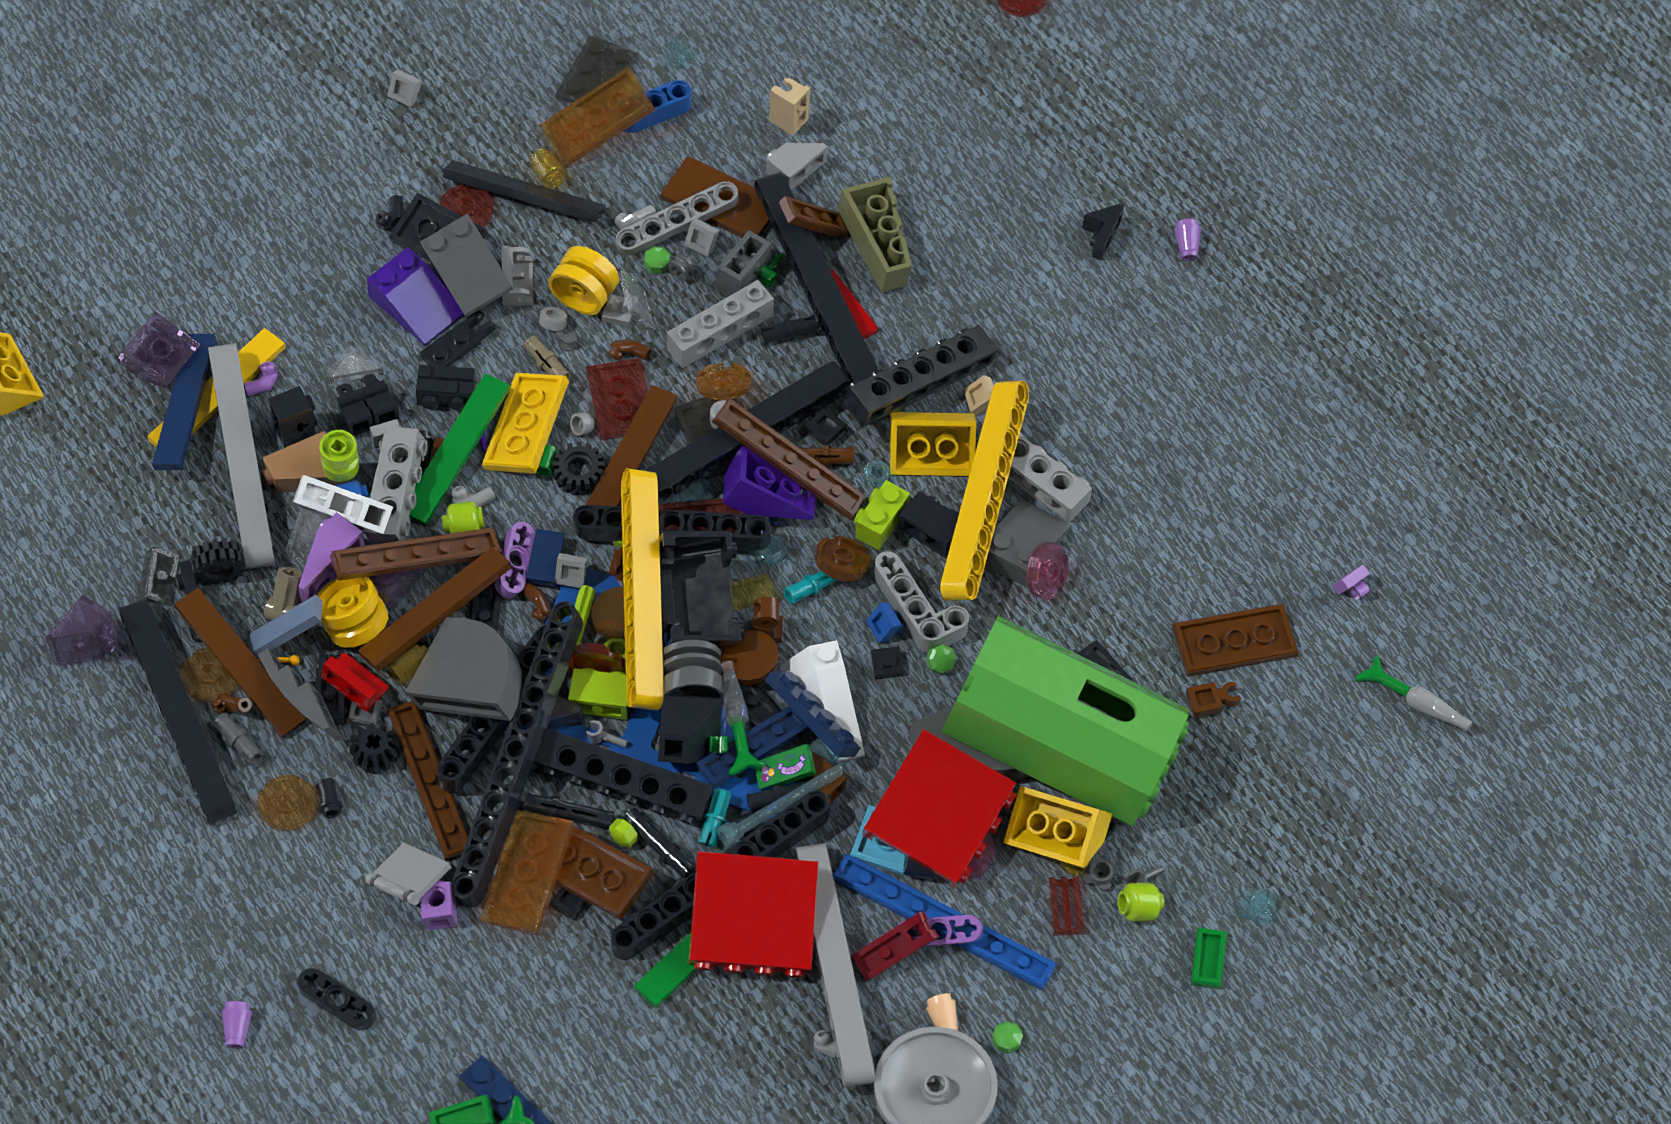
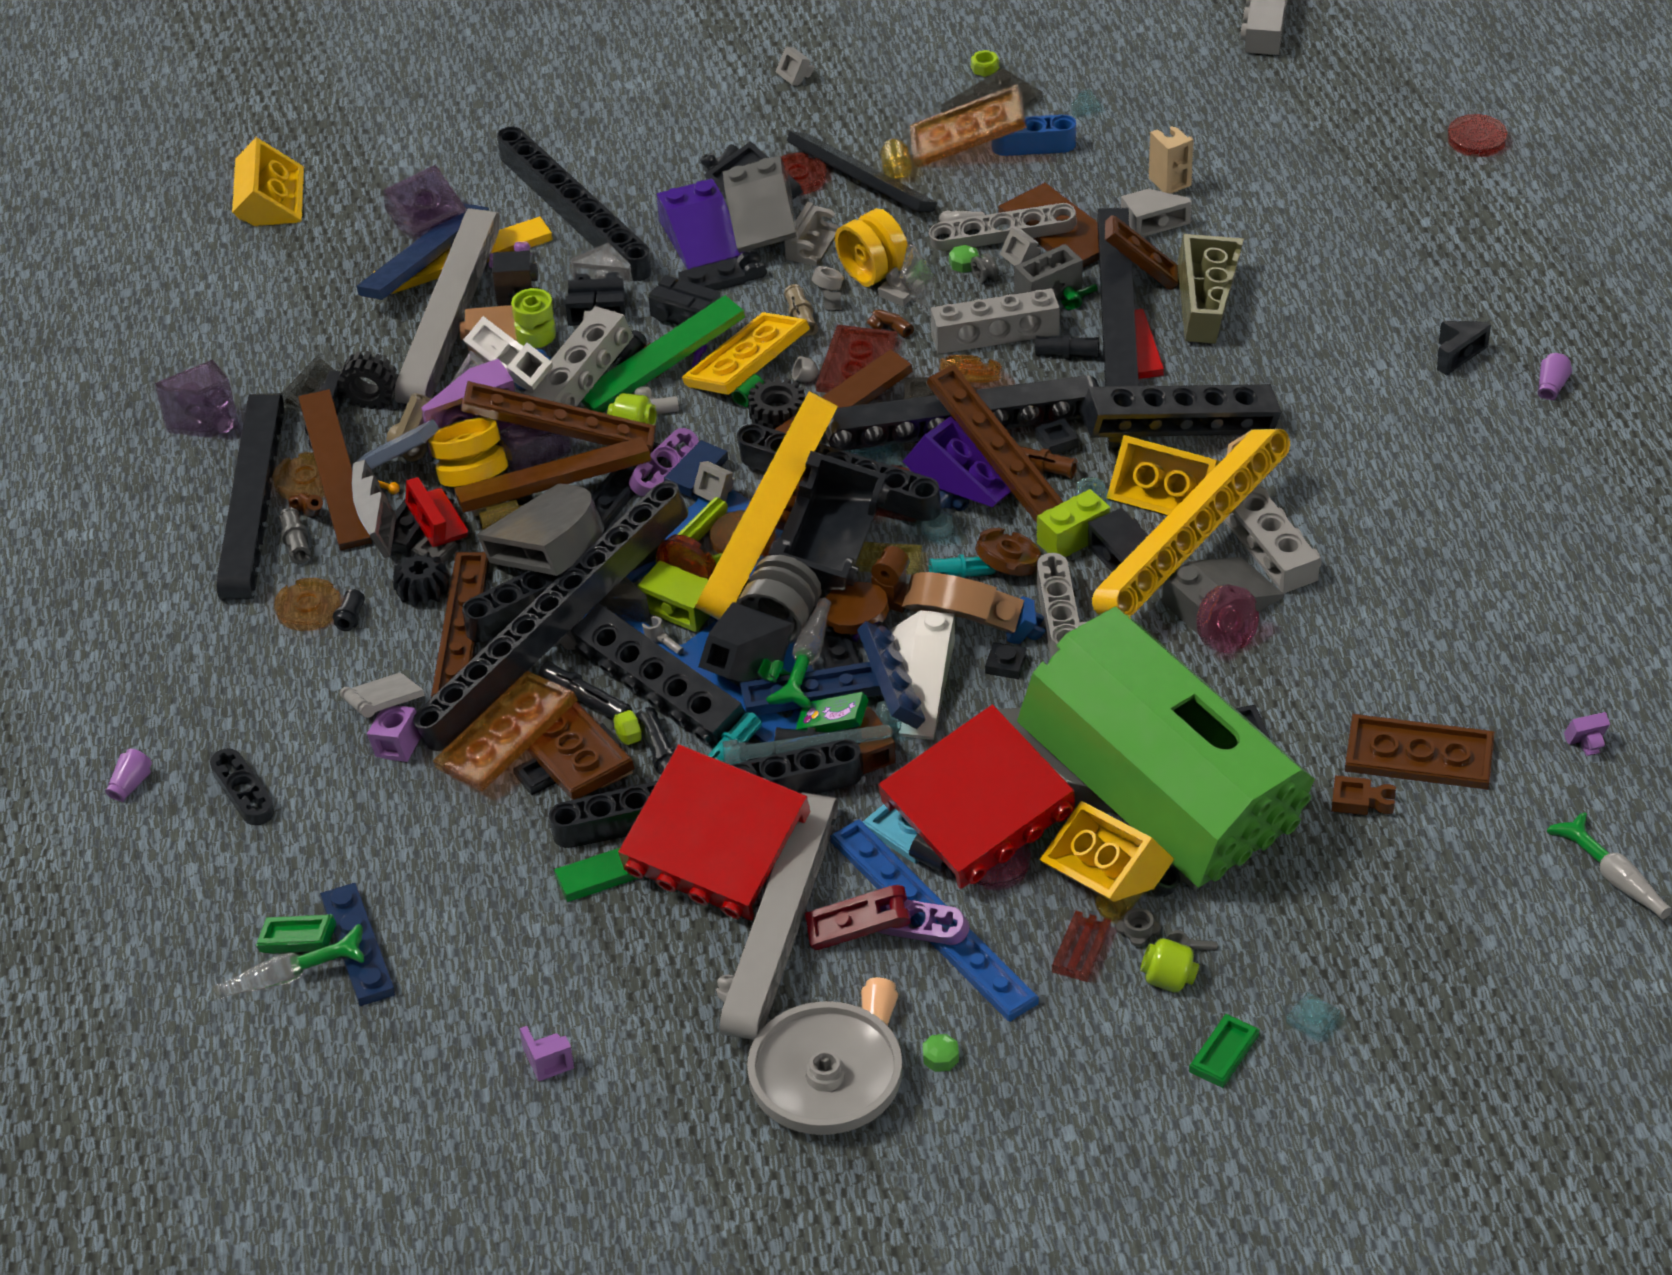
camera: 30 degrees right, 15 degrees down
(278, 296) = (571, 199): none -> black beam
(571, 33) = (984, 63): none -> lime tile
(833, 625) = (964, 599): none -> medium nougat arch

